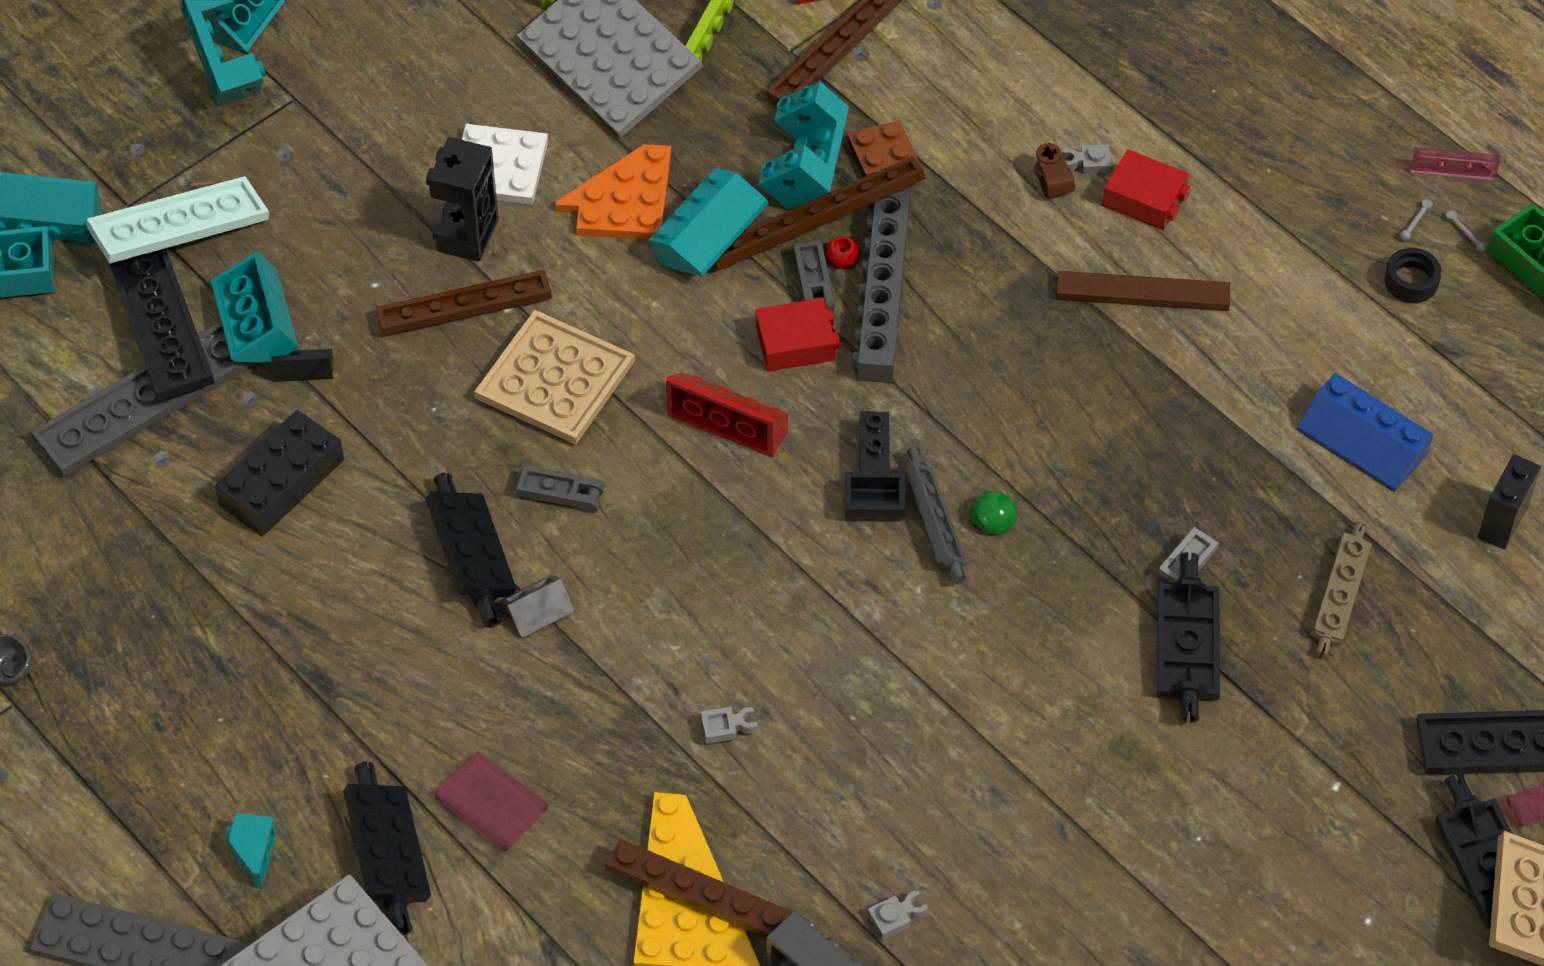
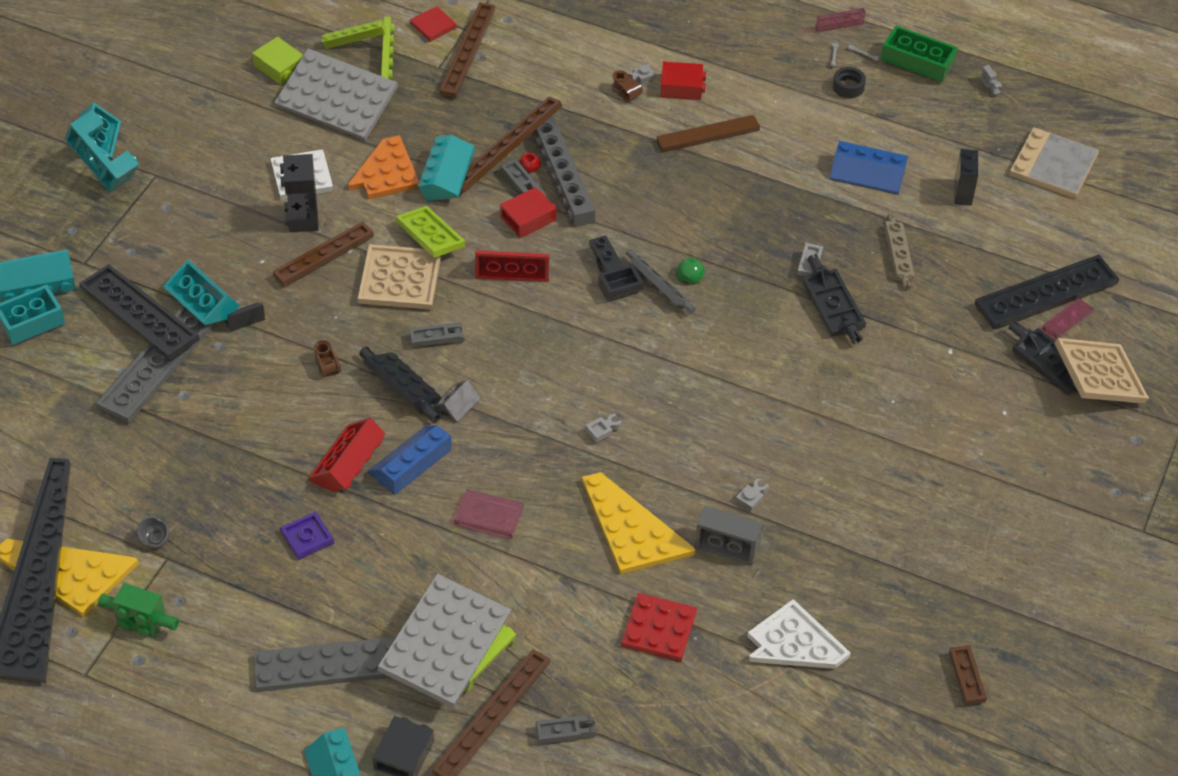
camera: 25 degrees left, 5 degrees down
(177, 219) = (124, 258): light aqua plate -> none
(218, 740) = (307, 535): none -> dark purple tile
(252, 844) = (361, 584): teal slope -> none
(279, 472) = (264, 378): black brick -> none
(335, 636) = (347, 455): none -> red slope
(381, 476) = (326, 358): none -> reddish brown piece
(386, 845) = (441, 552): black plate -> none
(424, 673) = (412, 458): none -> blue slope
(632, 319) = (430, 231): none -> lime plate
(695, 889) = (638, 518): reddish brown plate -> none
(817, 124) = (483, 100): teal plate -> none
(880, 147) = (520, 102): dark orange plate -> none

